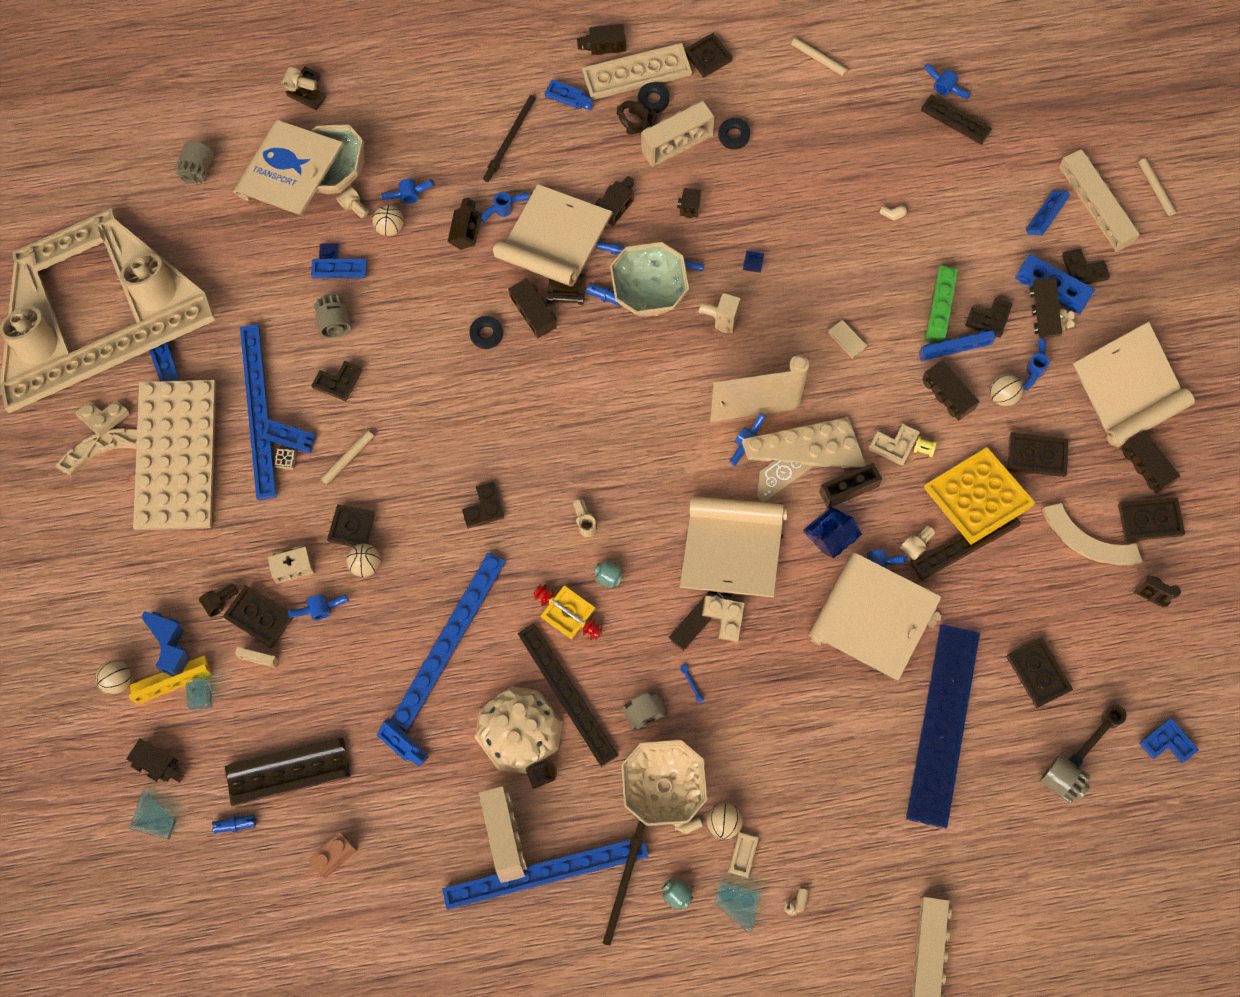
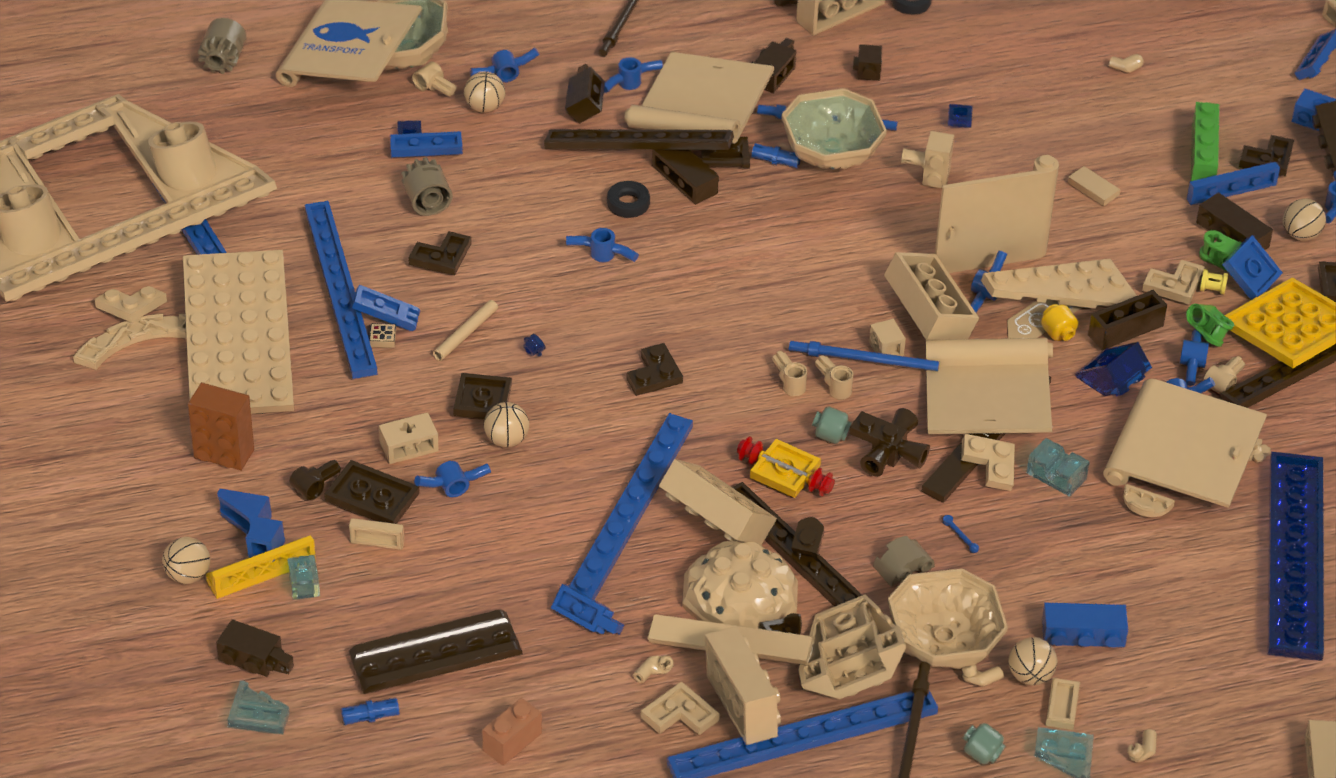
camera: 10 degrees left, 25 degrees down
(148, 557) = (221, 426): none -> dark orange brick
(395, 477) = (534, 345): none -> clear blue plate
(444, 796) = (652, 666): none -> tan arm
(459, 387) = (602, 245): none -> blue piece
(461, 837) = (683, 705): none -> tan plate
(494, 777) = (765, 643): none -> tan tile
(499, 278) = (638, 139): none -> dark brown tile
(509, 652) = (717, 503): none -> tan brick
(574, 687) = (808, 537): none -> dark brown plate
(590, 798) = (851, 649): none -> tan wedge
(607, 494) = (815, 349): none -> blue bar
(617, 523) = (837, 377): none -> tan axle
(648, 595) = (888, 441): none -> dark brown brick
(662, 490) = (887, 338): none -> tan brick
(701, 454) = (931, 296): none -> tan brick
(770, 785) = (1085, 624): none -> blue brick
(774, 627) = (1056, 468): none -> clear light blue brick
(798, 481) = (1059, 322): none -> yellow head
(836, 666) = (1146, 502): none -> tan plate
(897, 520) = (1193, 355): none -> blue piece
(914, 489) = (1209, 322): none -> bright green piece
(940, 418) = (1219, 250): none -> bright green piece
(956, 438) = (1252, 268): none -> blue plate

